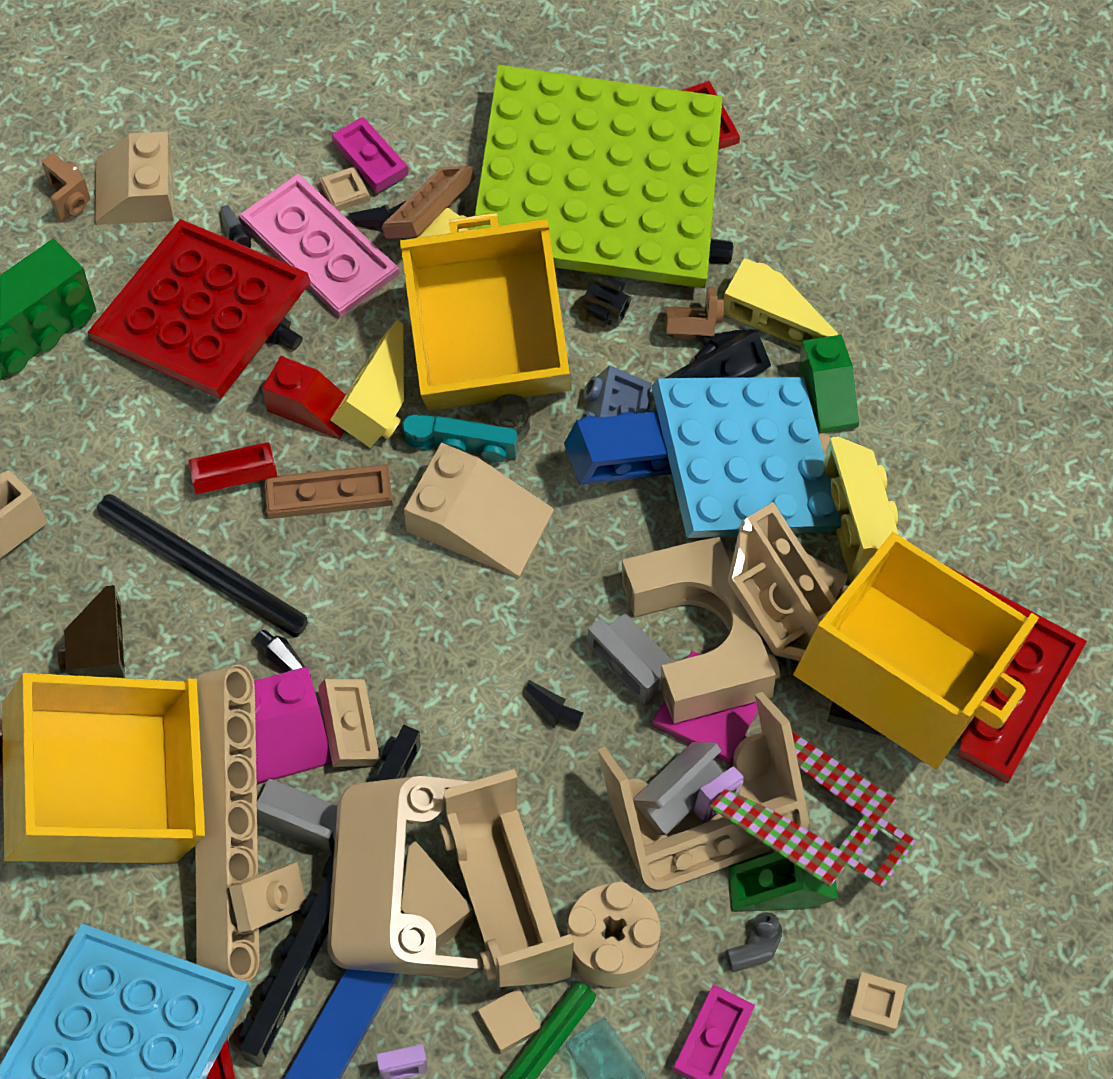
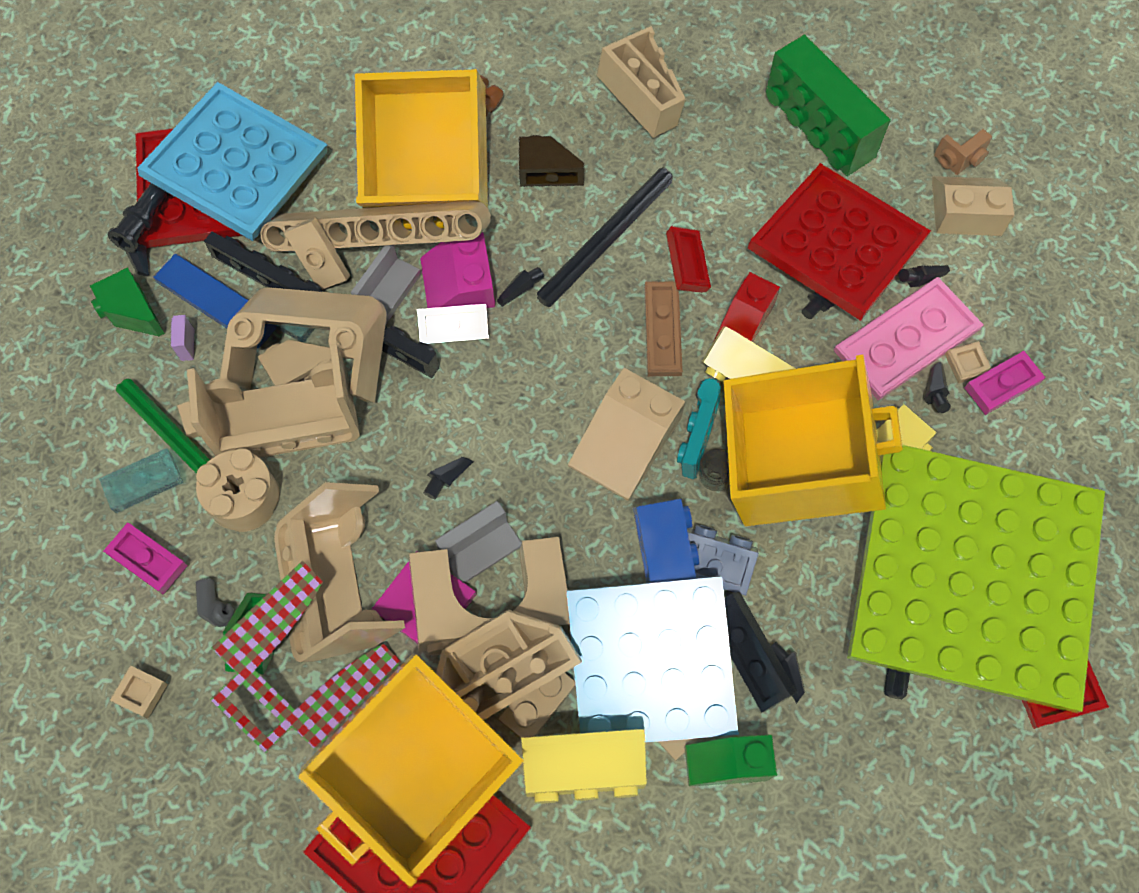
camera: 100 degrees right, 5 degrees up
(428, 202) = (945, 420): medium nougat plate -> none
(606, 302) = (834, 565): black gear -> none
(676, 788) = (348, 557): light grey panel -> none
(688, 322) = (813, 643): medium nougat bracket -> none
(730, 780) = (333, 587): lavender tile -> none
(772, 305) = (831, 717): light yellow slope -> none

